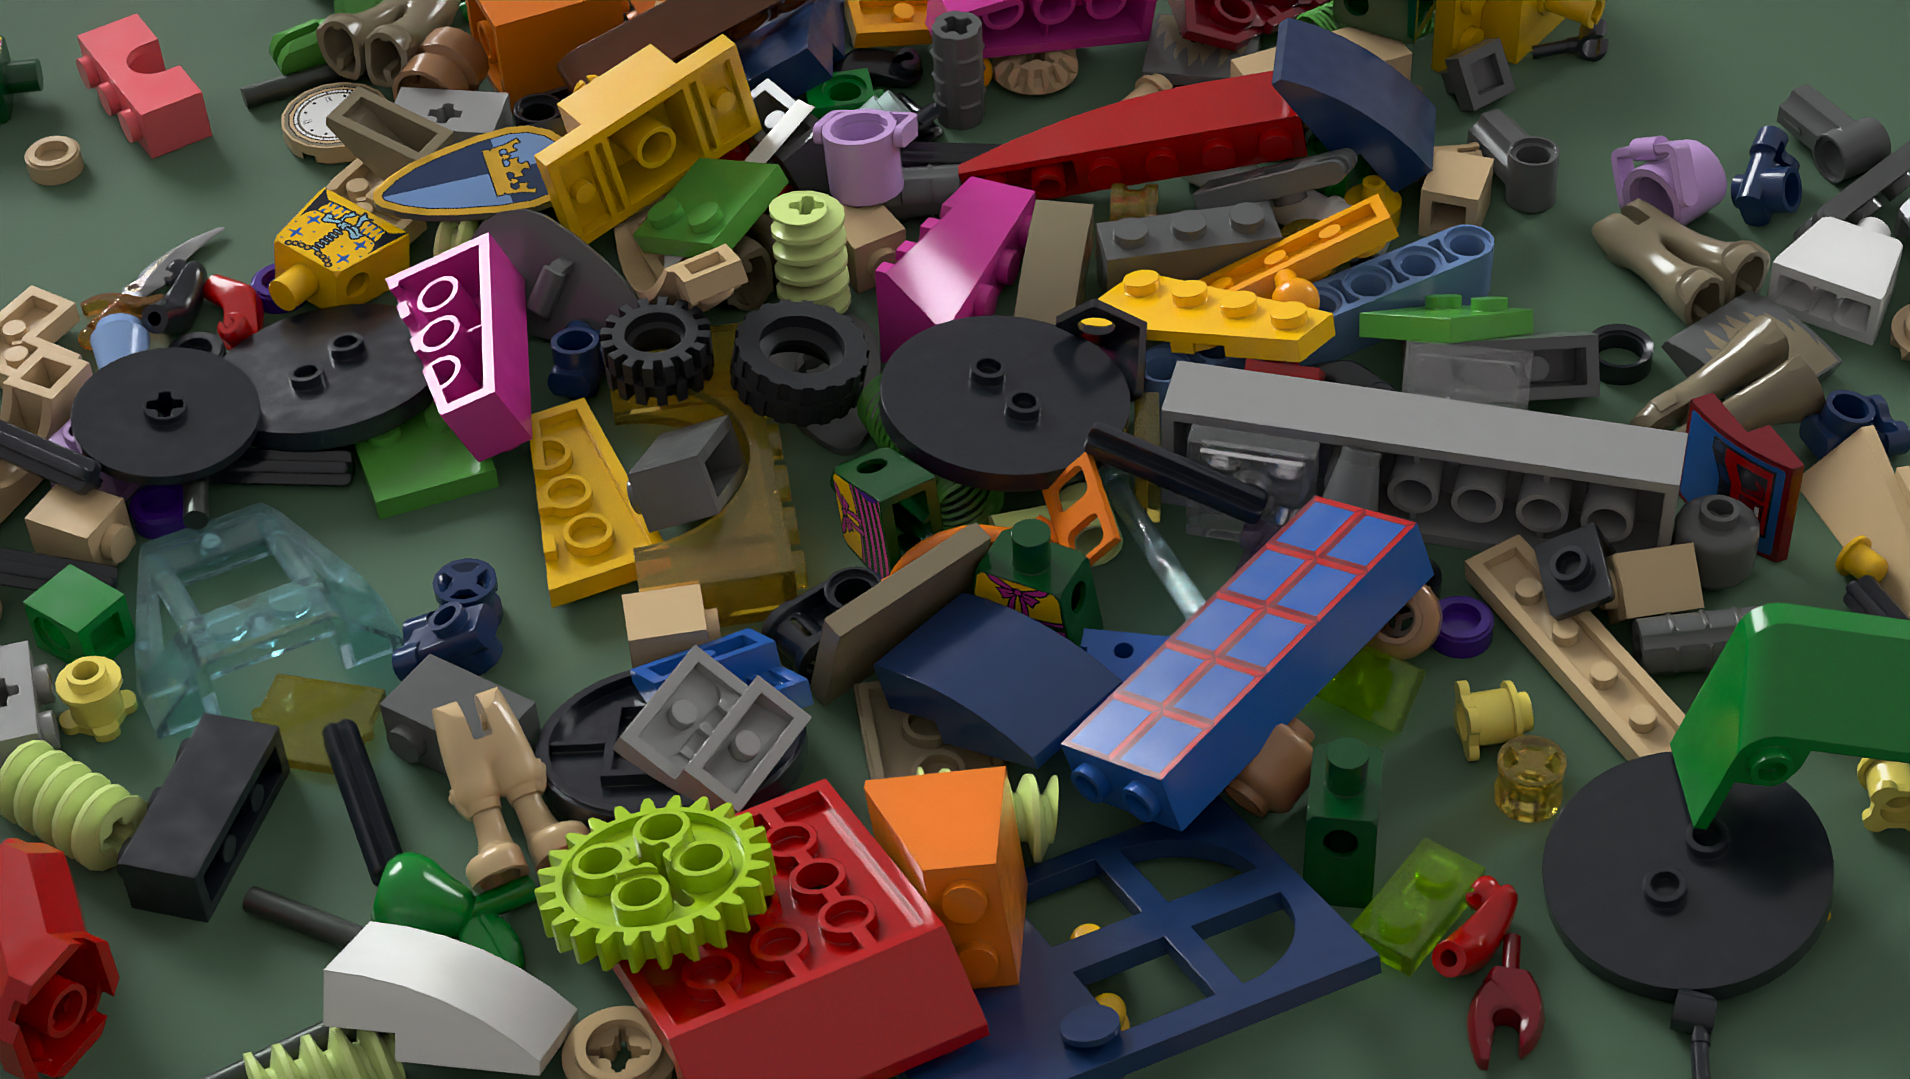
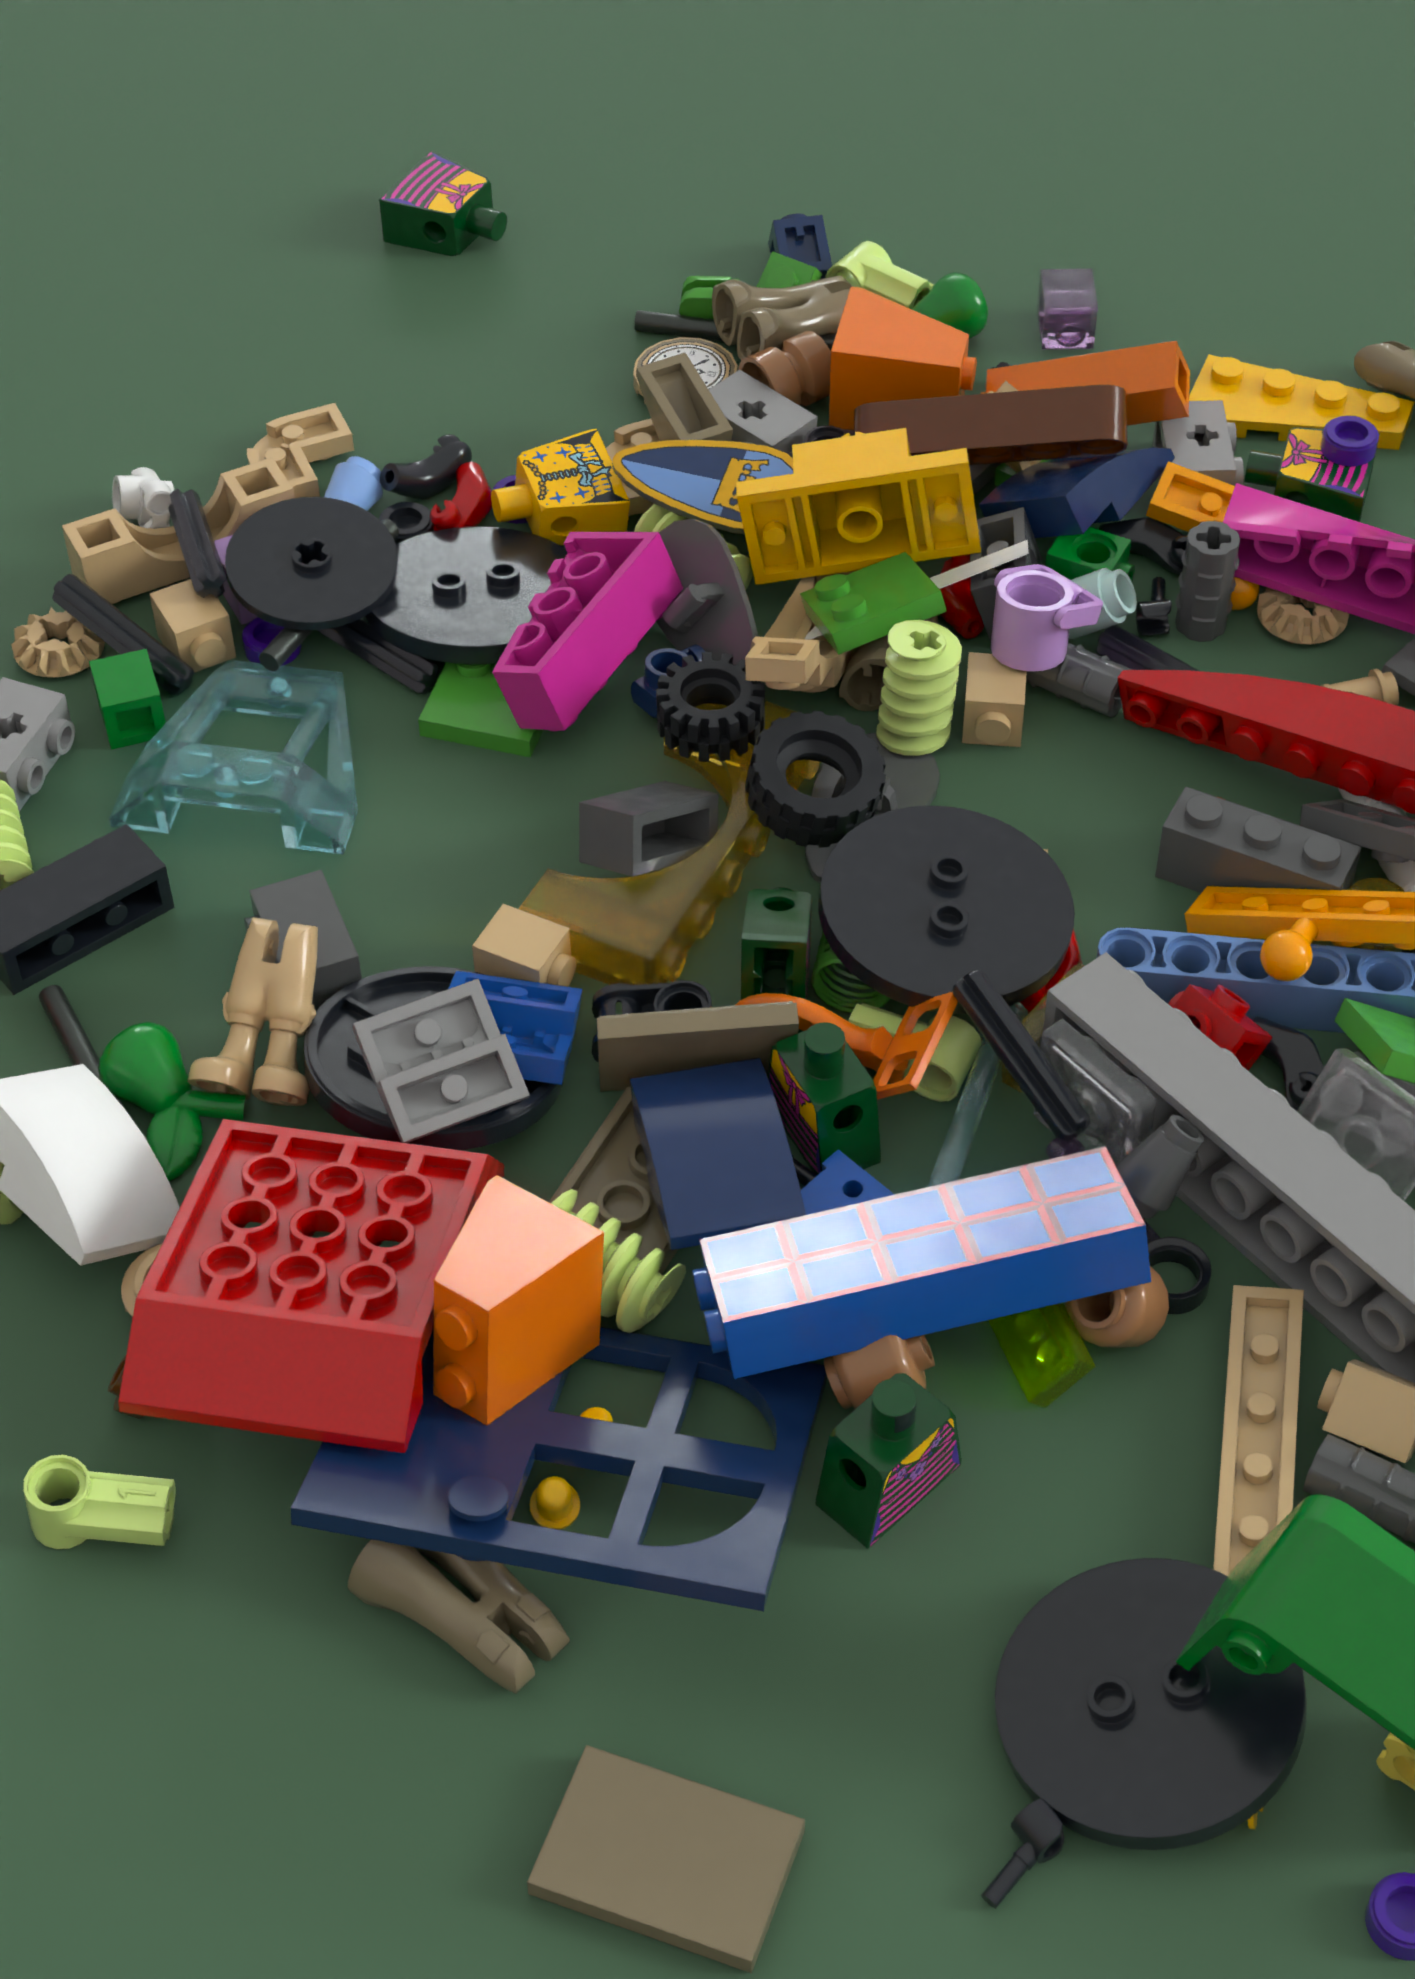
camera: 35 degrees right, 5 degrees up
(54, 160) = (454, 305): tan tile -> none
(94, 698) = (85, 767): light yellow brick -> none
(138, 294) = (387, 450): clear orange piece -> none
(152, 103) = (561, 272): coral arch -> none
(306, 706) = (215, 875): clear yellow piece -> none
(361, 796) = (190, 958): black axle -> none
(452, 634) = (363, 866): dark blue plate -> none
(469, 583) = (409, 839): dark blue wheel -> none
(583, 505) = (544, 831): yellow wing -> none
(691, 886) = (202, 1160): lime gear -> none
(956, 263) = (1044, 760): dark pink wedge -> none
(1055, 260) = (1120, 818): dark tan slope -> none
(1121, 341) = (1097, 912): black bracket -> none
(1133, 202) = (1253, 788): clear yellow wheel -> none
(1206, 317) = (1189, 920): yellow wing -> none
(1417, 905) = (901, 1572): clear neon green plate -> none
(1464, 628) = (1185, 1345): dark purple tile -> none
(1482, 934) = (921, 1634): red arm -> none
(1490, 716) = (1119, 1443): light yellow brick -> none
(1506, 998) = (892, 1704): dark red hand -> none
(1530, 778) = (1116, 1511): clear yellow wheel -> none
(1575, 571) = (1310, 1354): black bracket -> none

